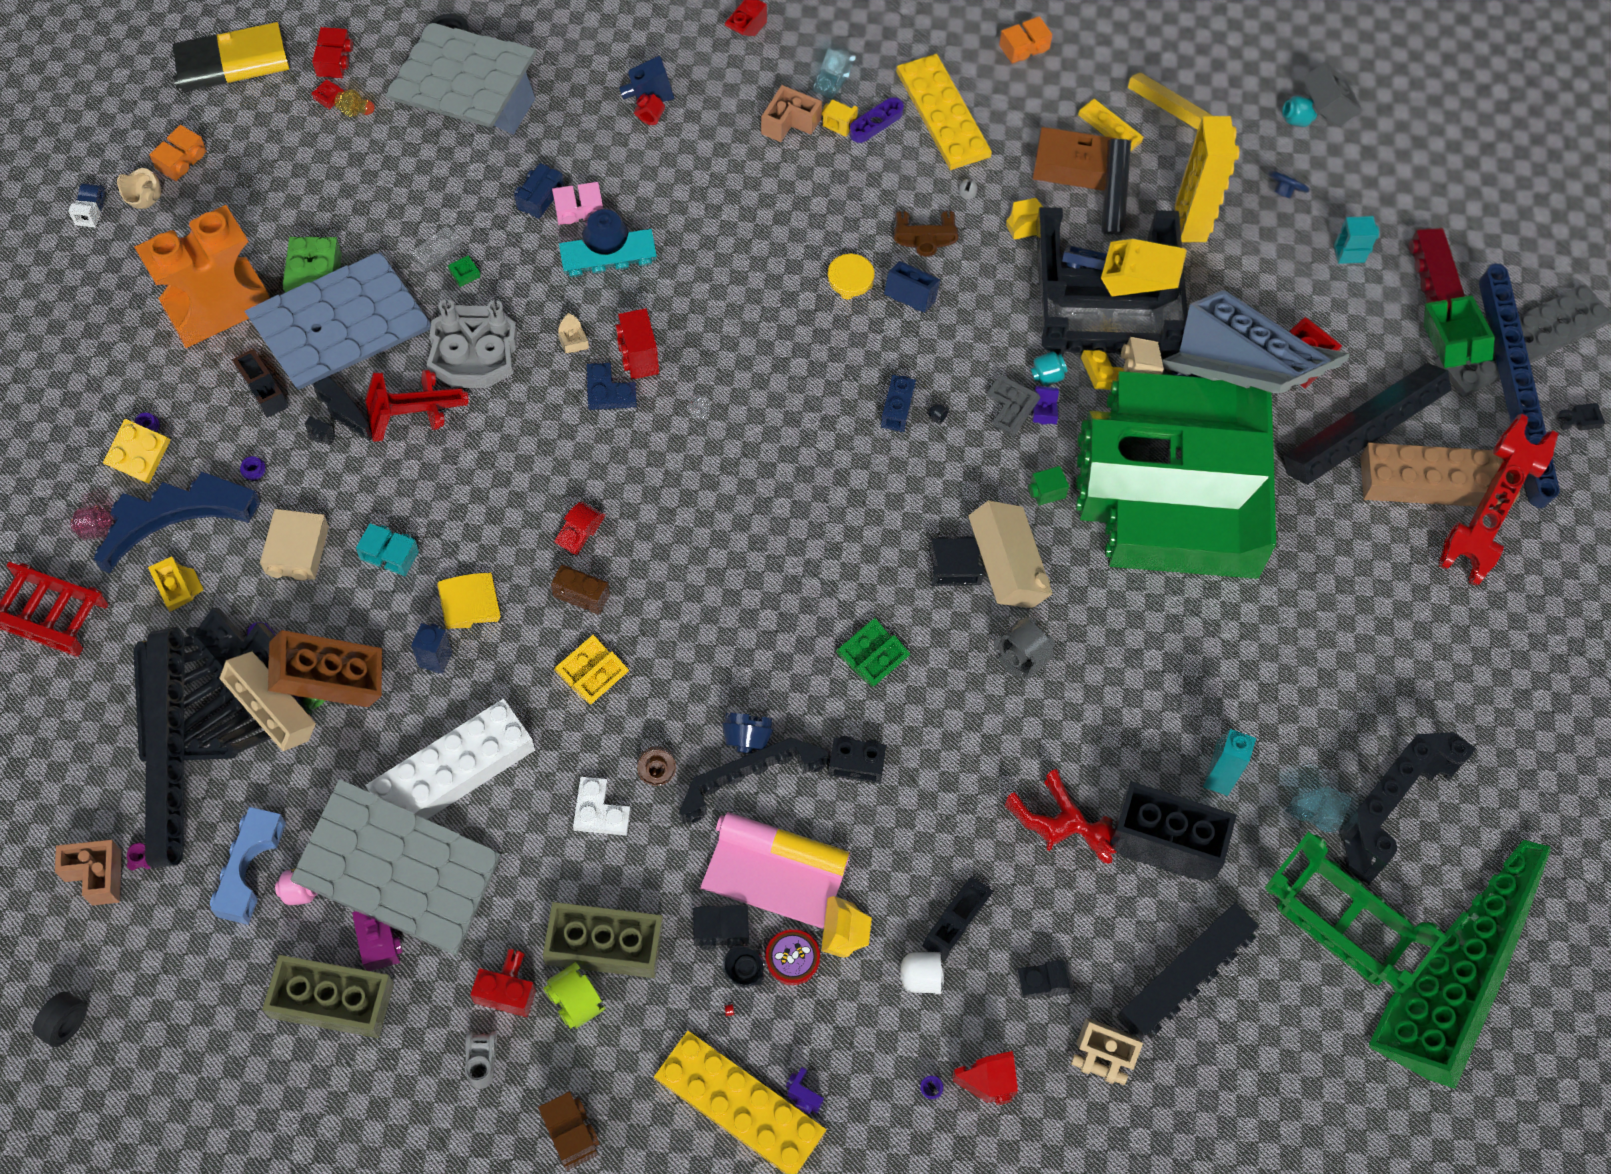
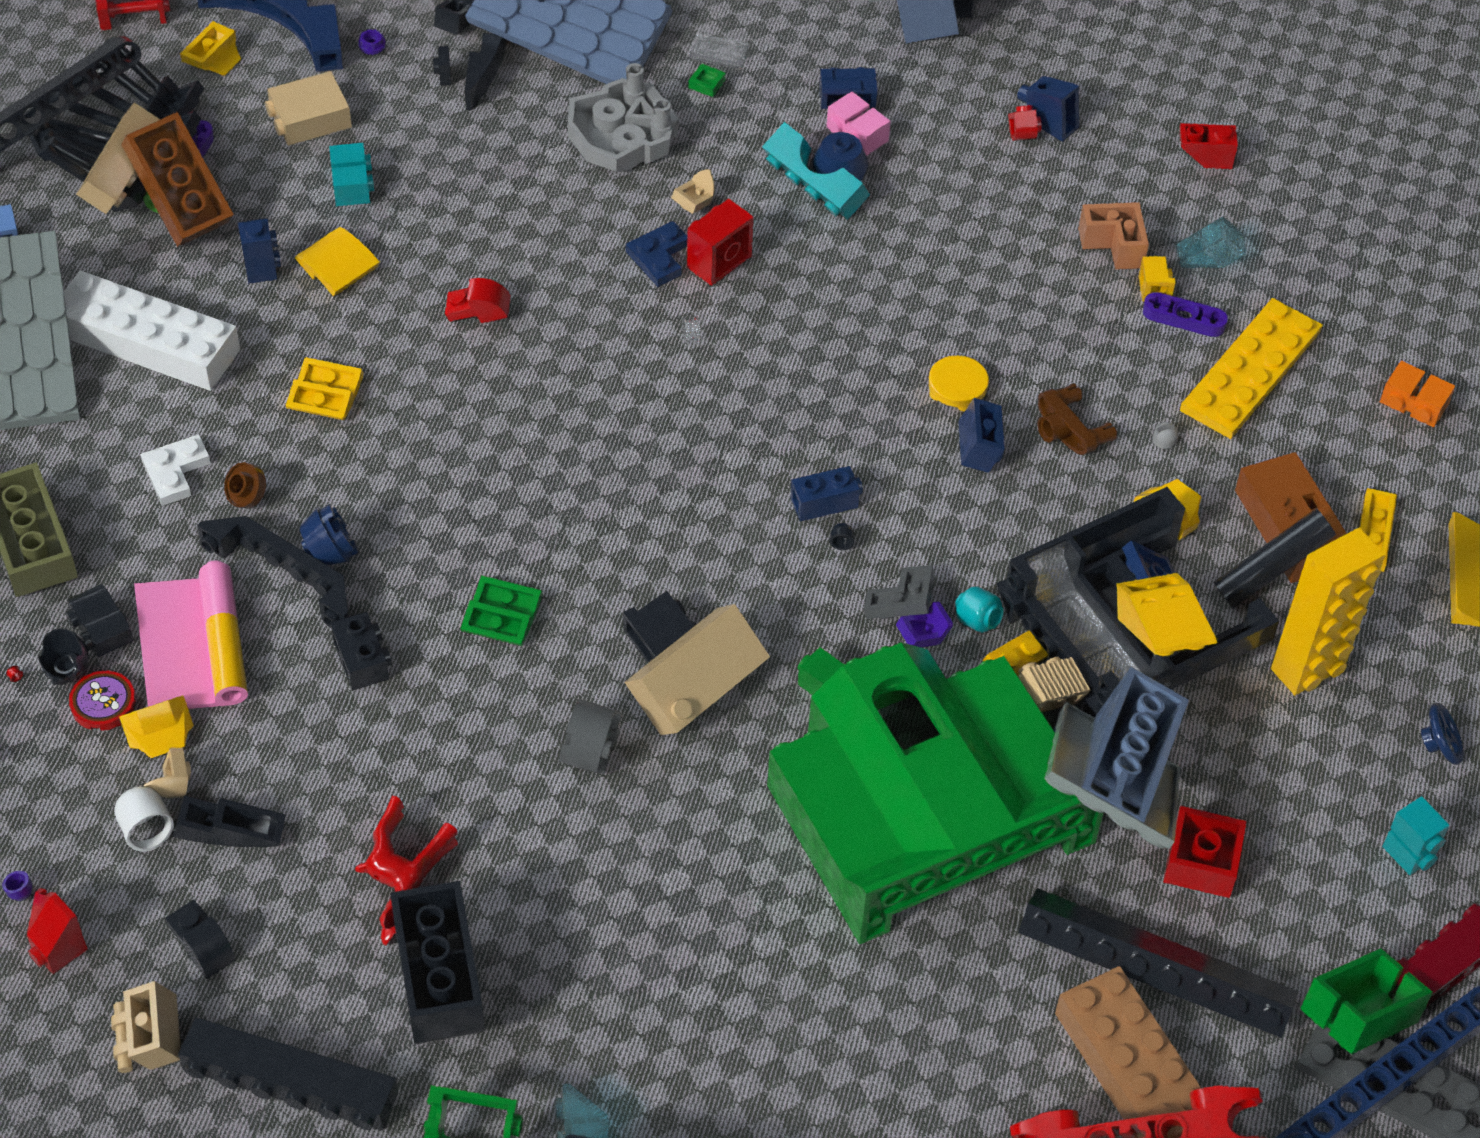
camera: 60 degrees right, 10 degrees down
(382, 404) = (502, 92): red piece -> none
(580, 589) = (404, 334): reddish brown brick -> none
(897, 935) = (176, 775): none -> tan plate
(1228, 761) = (571, 986): teal slope -> none

